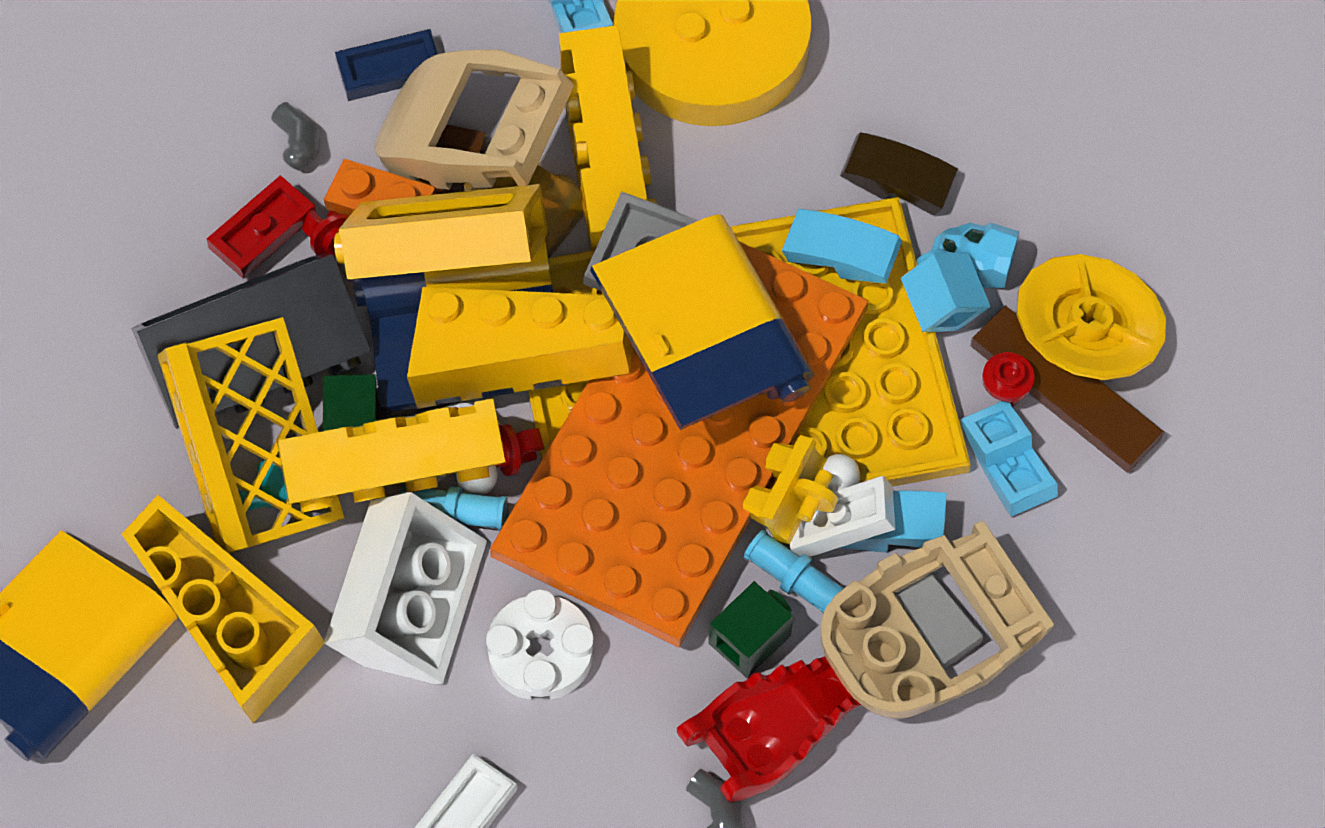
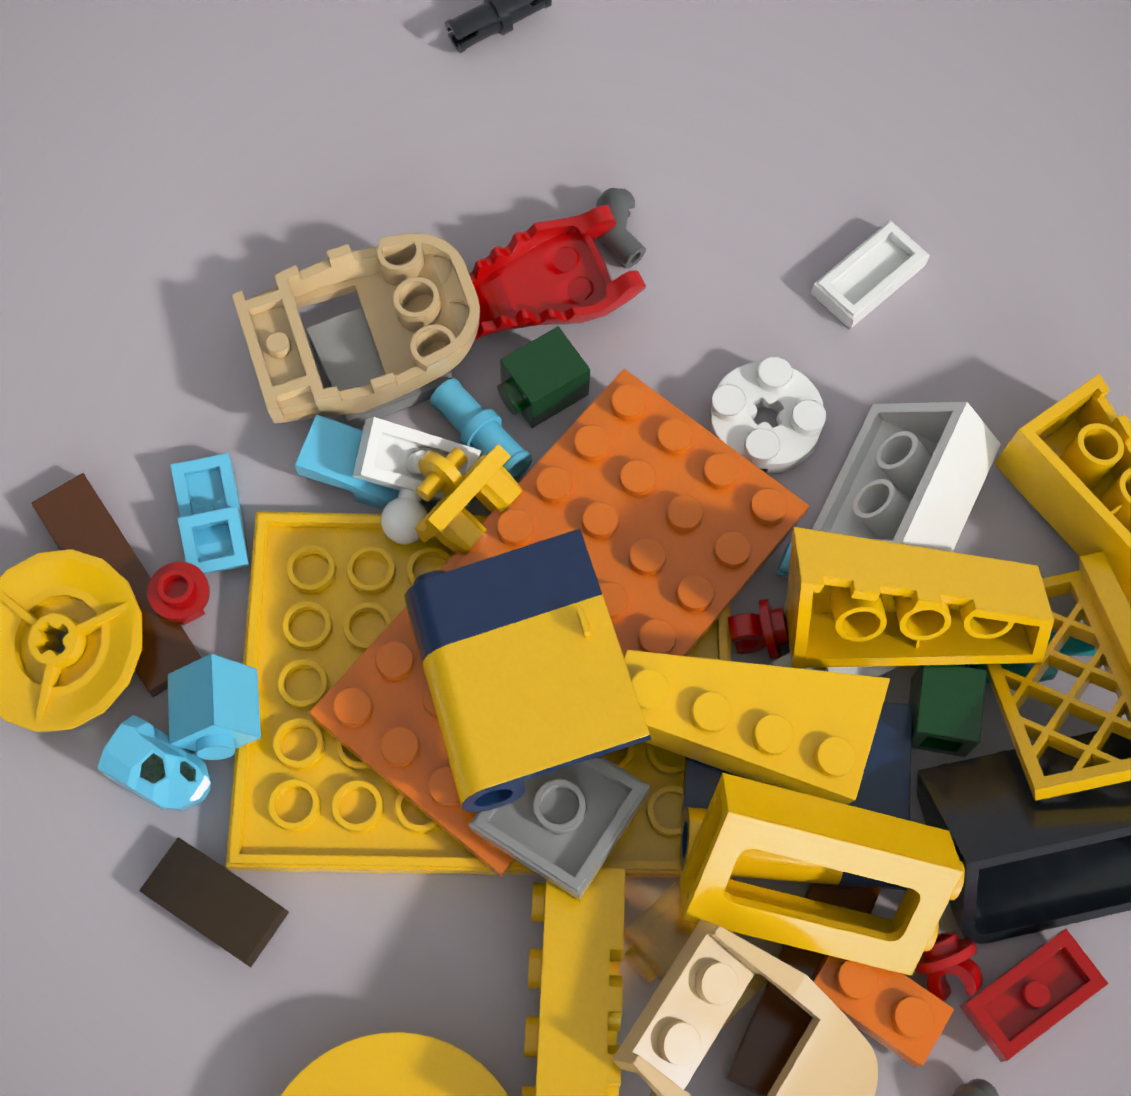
camera: 170 degrees left, 5 degrees up
(848, 245) = (318, 793): medium azure slope -> none

